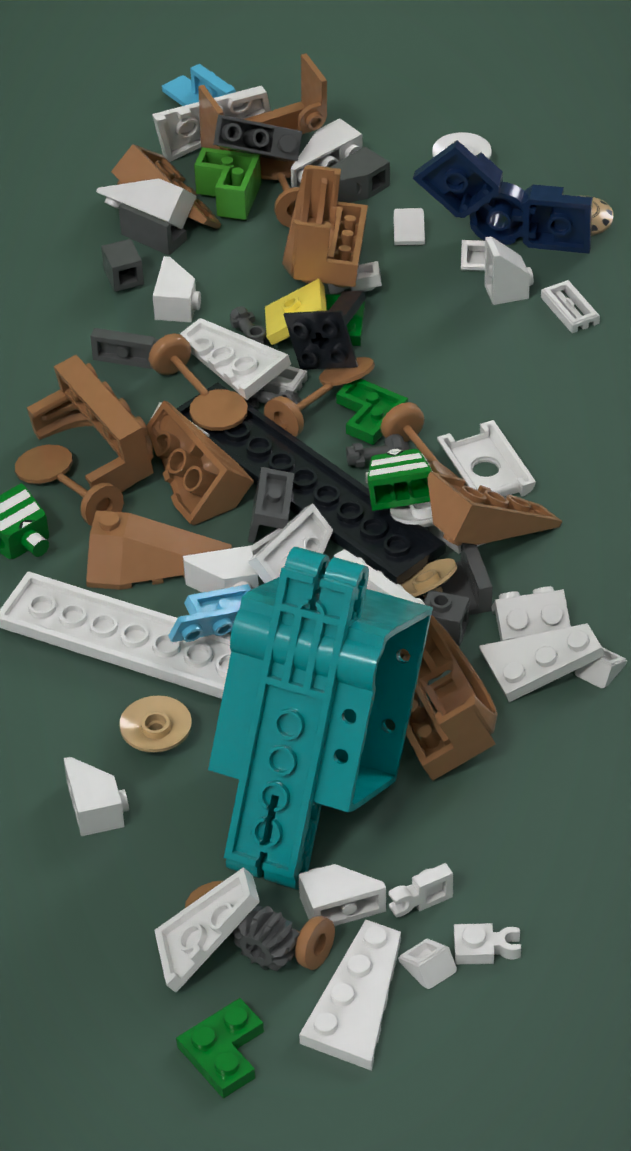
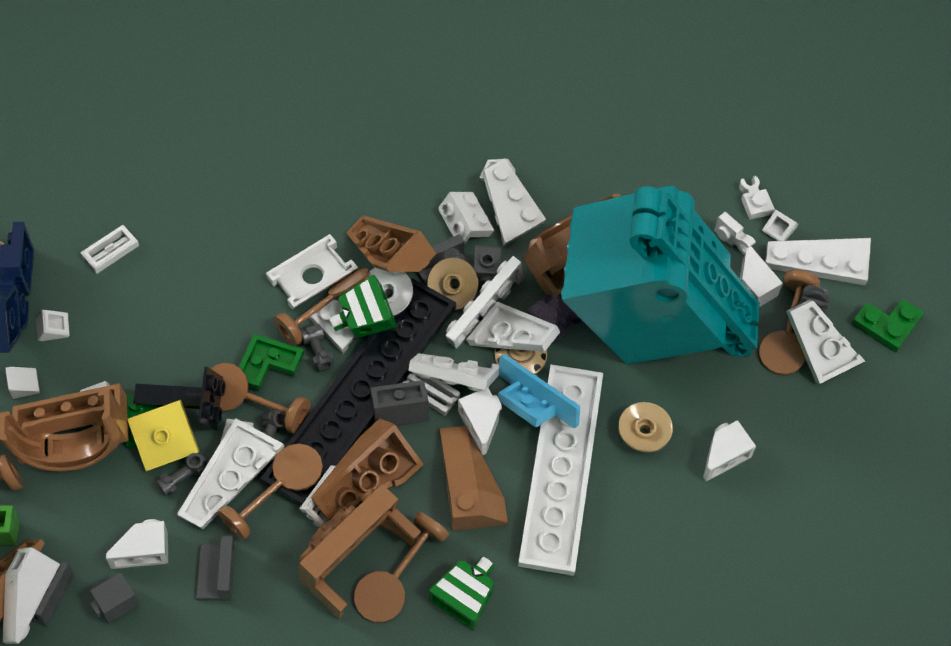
camera: 110 degrees left, 15 degrees up
(505, 273) = (90, 291): white slope -> none

